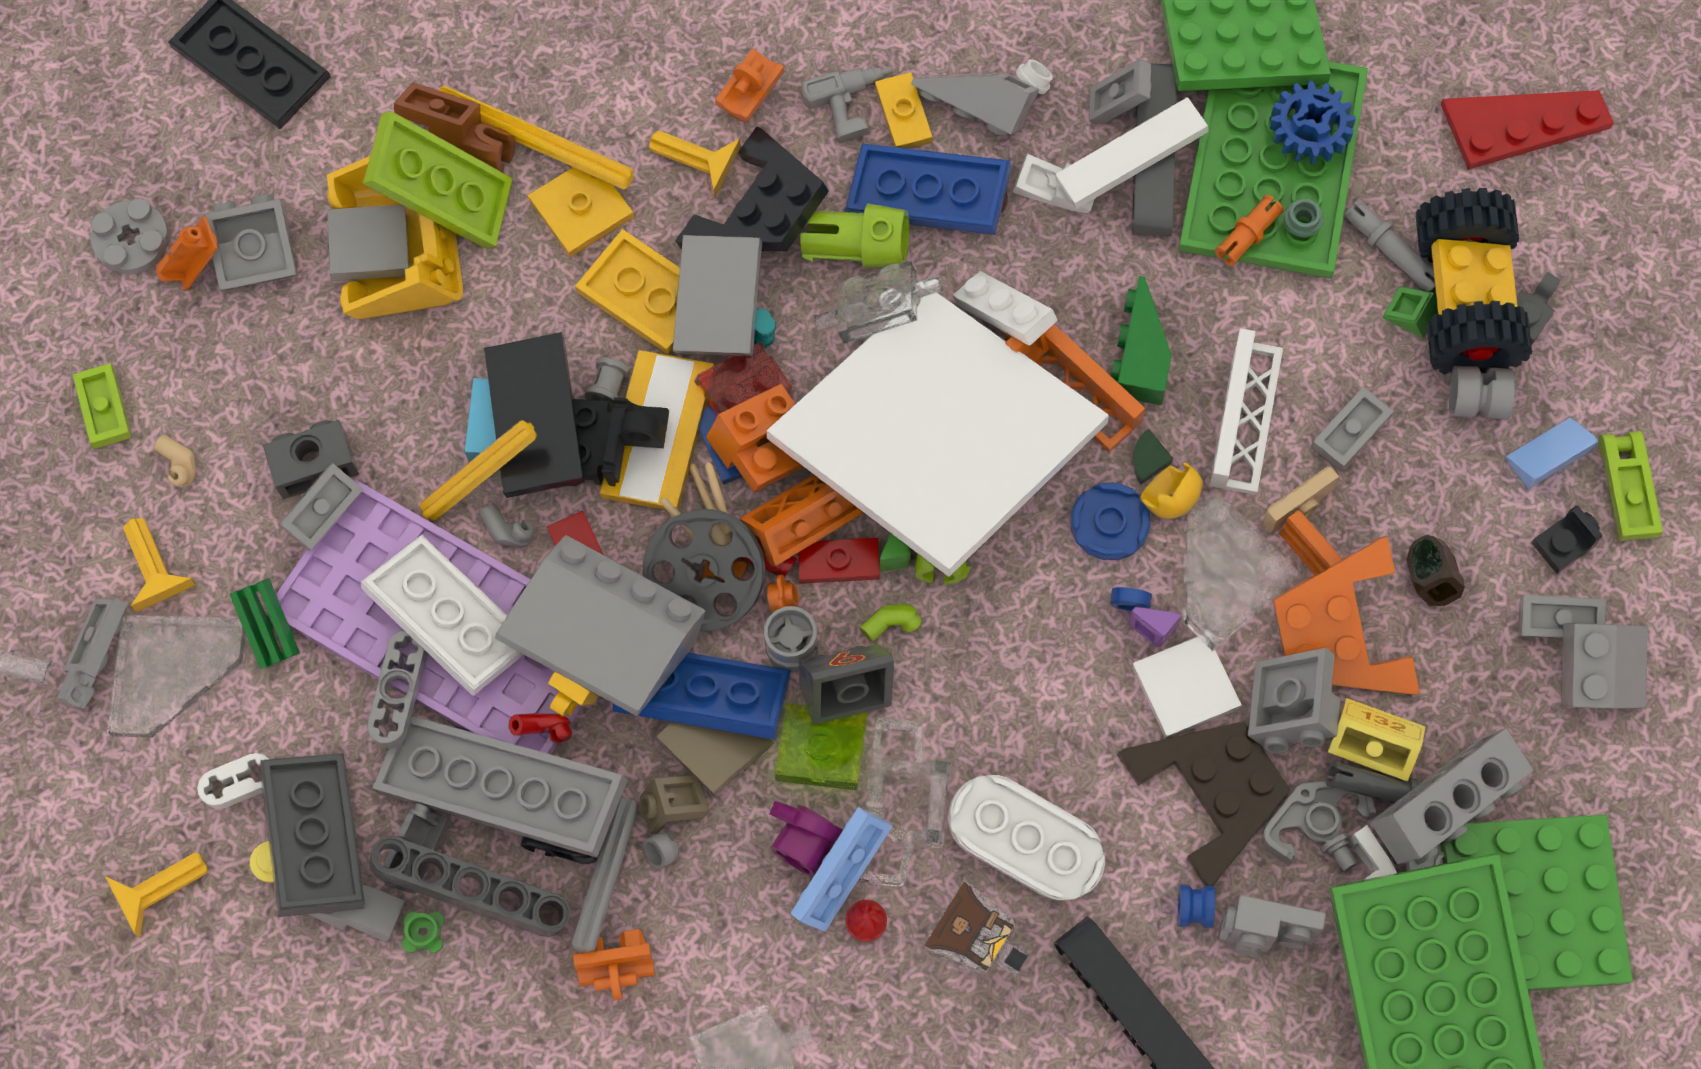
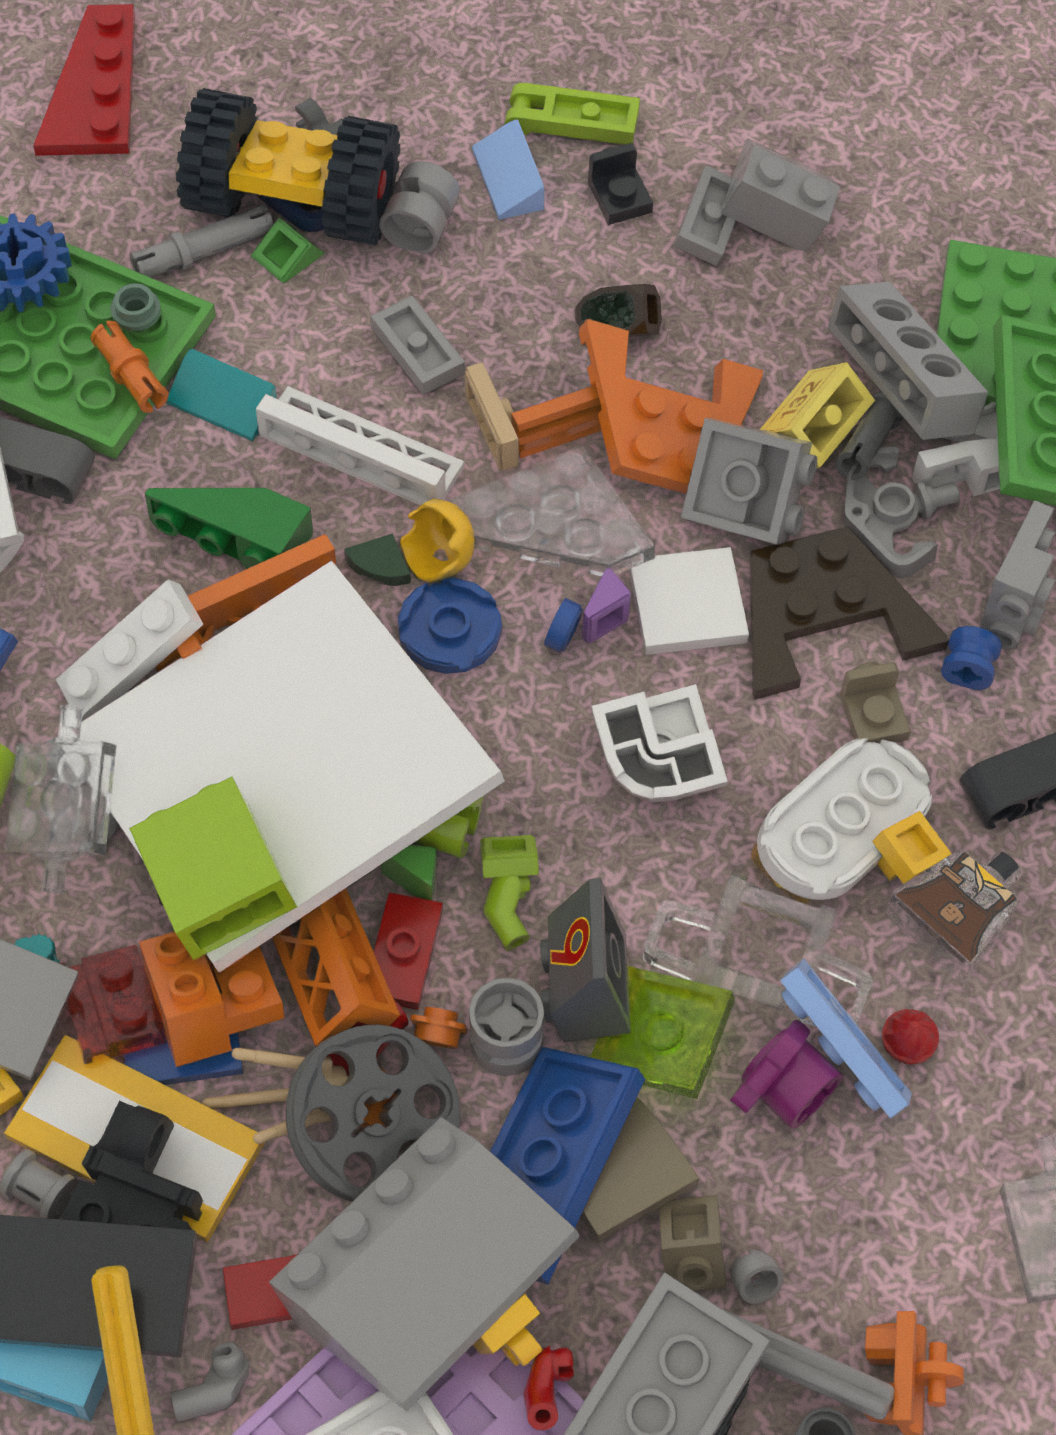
camera: 80 degrees left, 10 degrees down
(830, 406) = (212, 868): none -> lime brick
(927, 610) = (509, 856): none -> lime tile
(1008, 887) = (909, 848): none -> yellow tile
(1039, 689) = (660, 745): none -> white brick
(1133, 842) = (874, 703): none -> dark tan bracket
(1257, 302) = (219, 393): none -> teal slope

